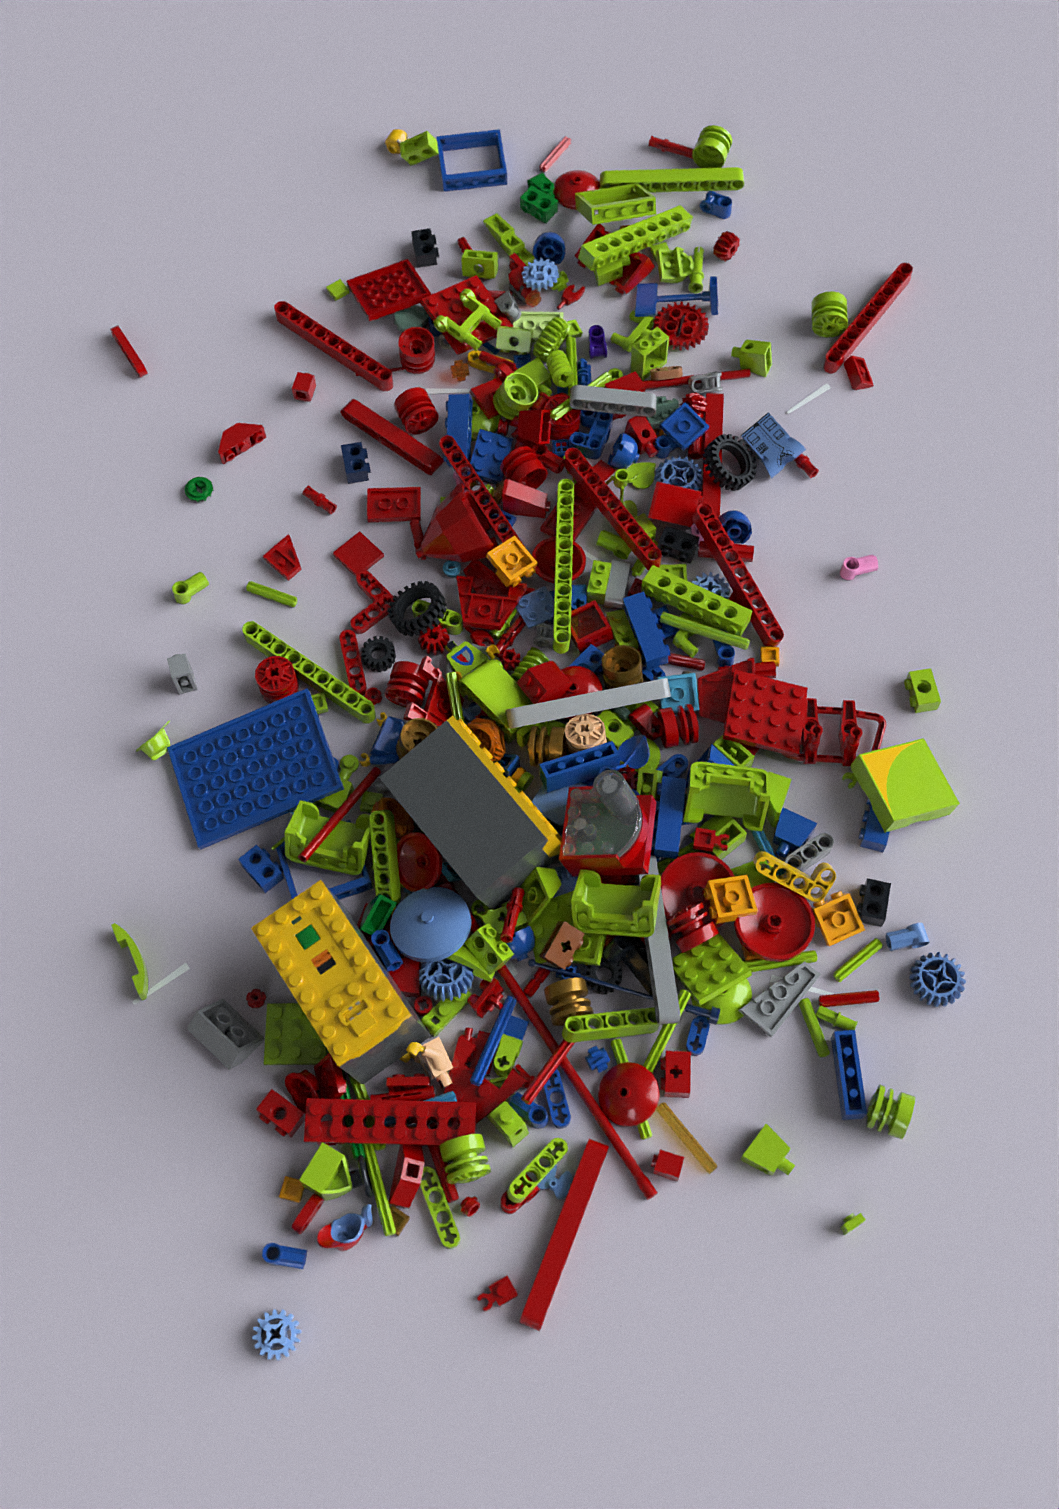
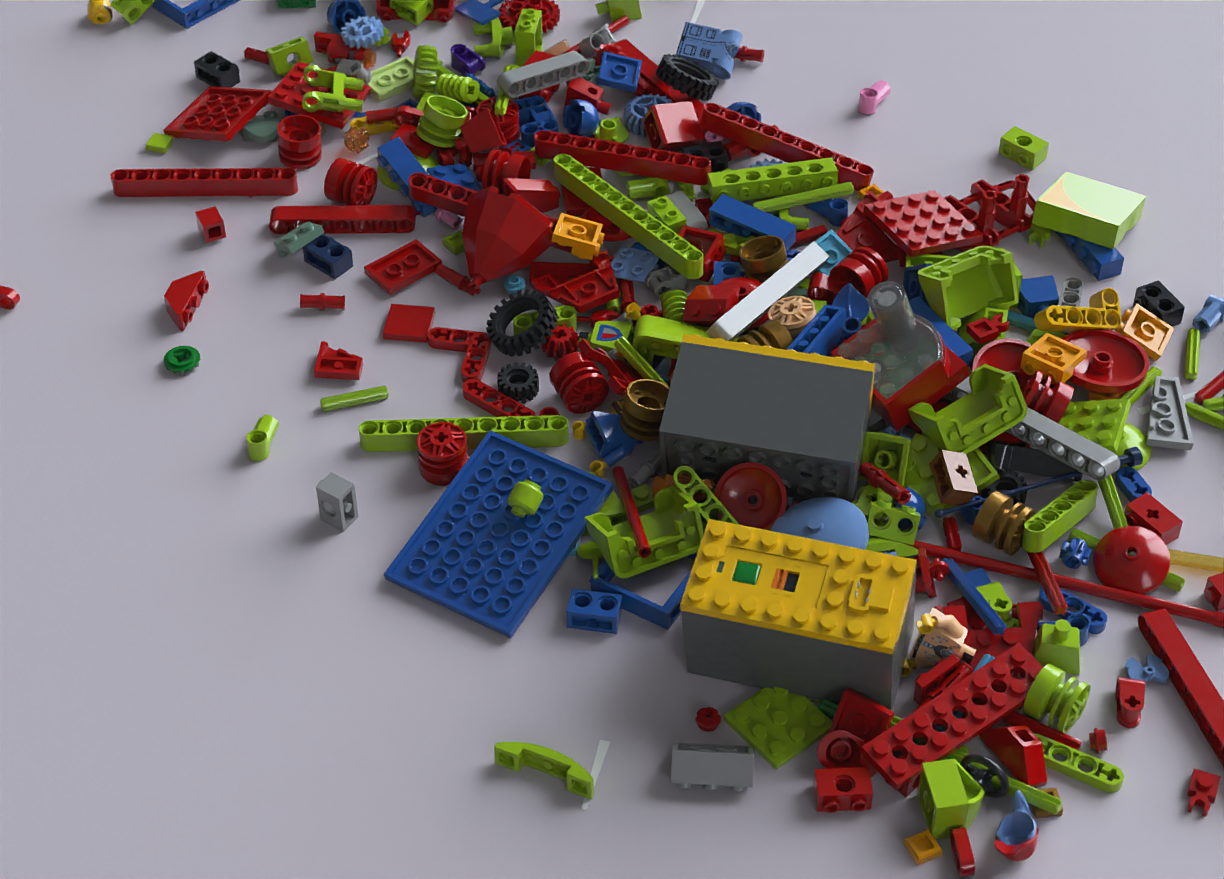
camera: 40 degrees left, 20 degrees down
(157, 745) = (369, 575): lime piece -> none
(277, 759) = (525, 498): none -> lime head
(343, 437) = (298, 238): none -> sand green slope
(506, 238) = (288, 28): lime slope -> none
(524, 336) = (394, 84): lime brick -> none
(537, 1169) = (1127, 665): lime beam -> none
(664, 445) = (614, 97): blue piece -> none

